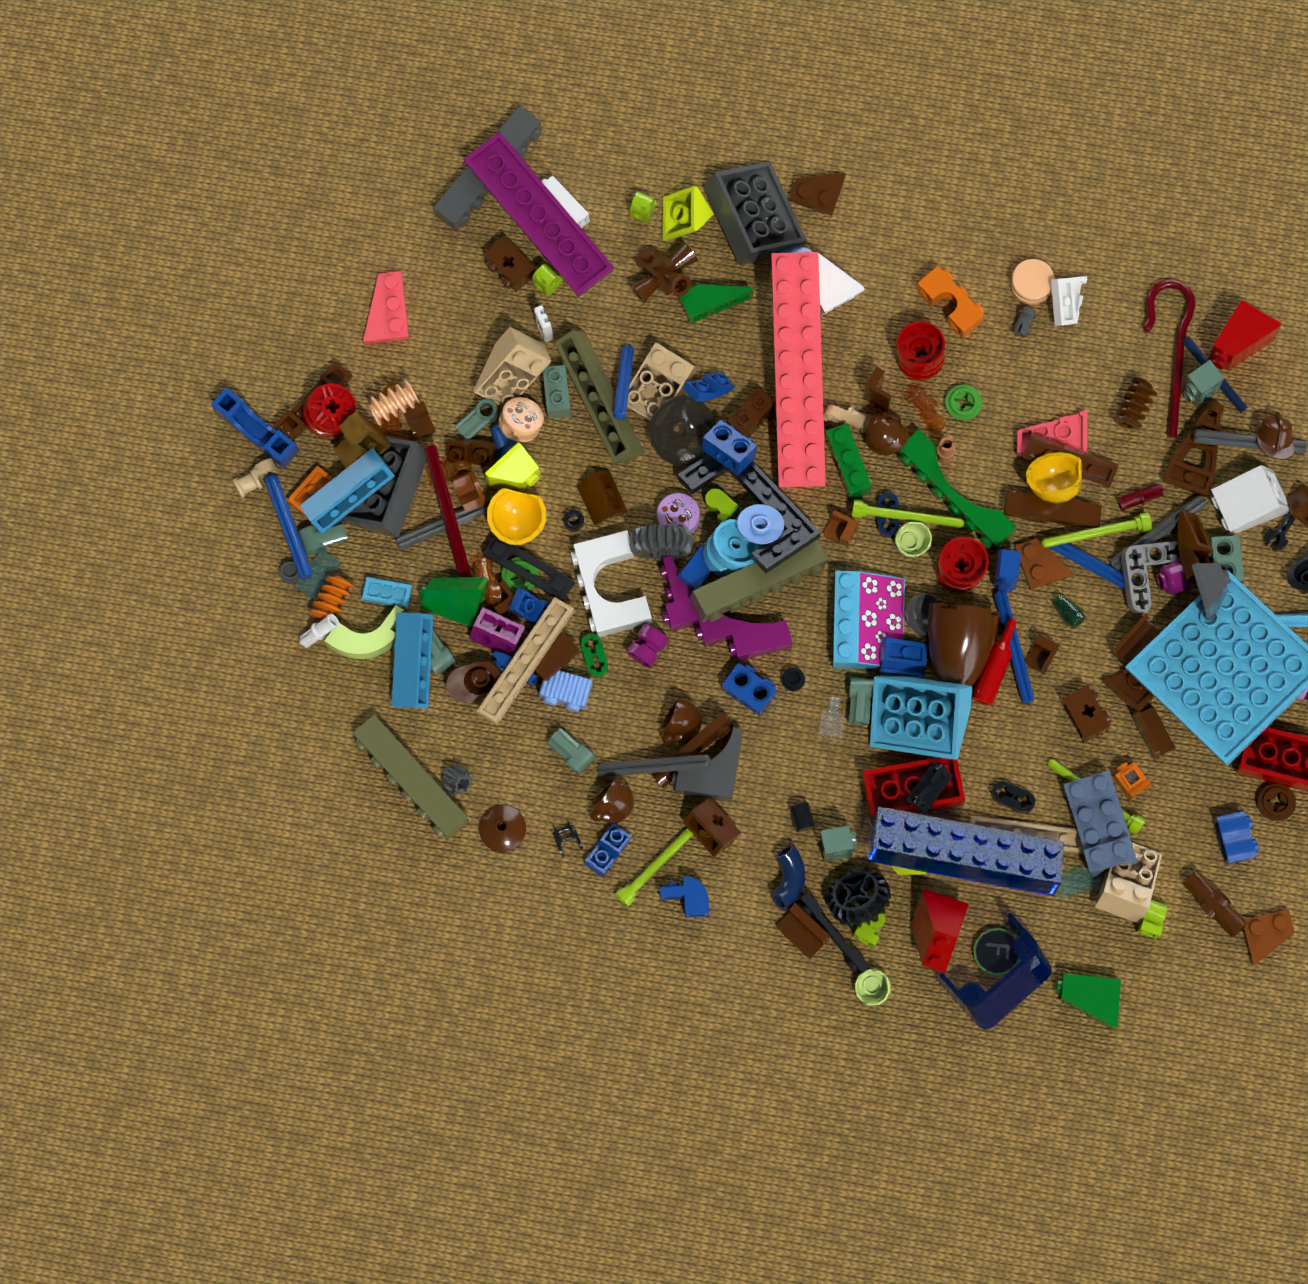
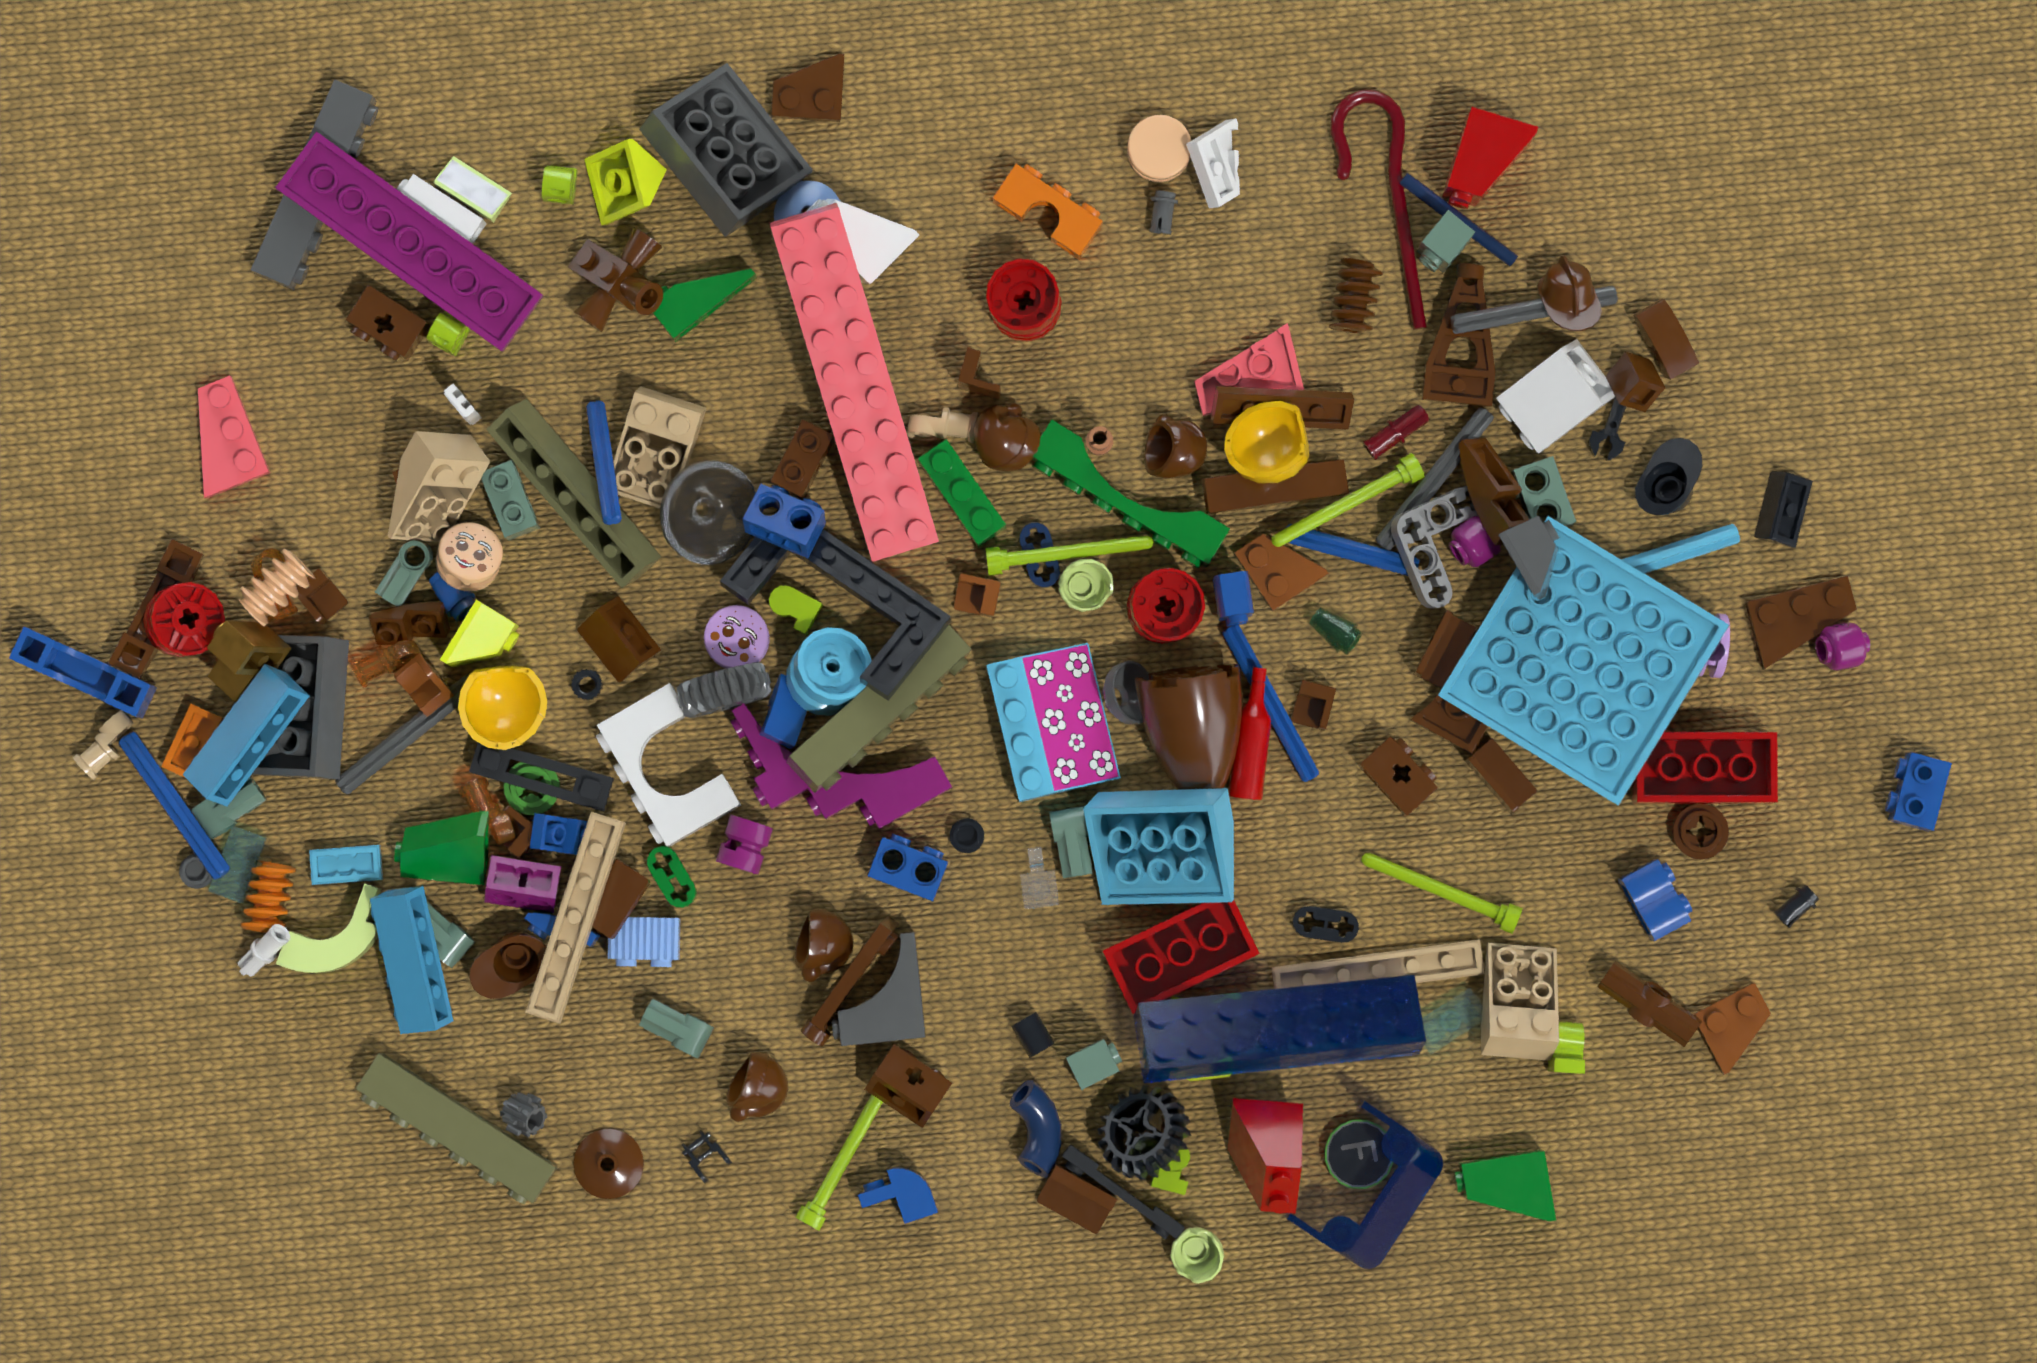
camera: 20 degrees left, 10 degrees up
(447, 511) = (401, 725): dark red axle -> none
(587, 197) = (472, 189): none -> flat silver slope
(607, 850) = (768, 1155): blue slope -> none
(654, 765) = (802, 1020): dark grey axle -> none
(710, 387) = (733, 434): blue slope -> none
(760, 517) = (856, 615): light blue dish -> none
(903, 657) = (1116, 764): blue plate -> none
(926, 406) = (1051, 377): clear orange connector -> none
(929, 787) = (1204, 952): black hinge -> none
(957, 394) = (1118, 347): bright green gear -> none
(993, 469) = (1174, 448): none -> reddish brown piece
(1100, 822) = (1459, 933): sand blue piece -> none
(1131, 780) = (1487, 855): orange window -> none

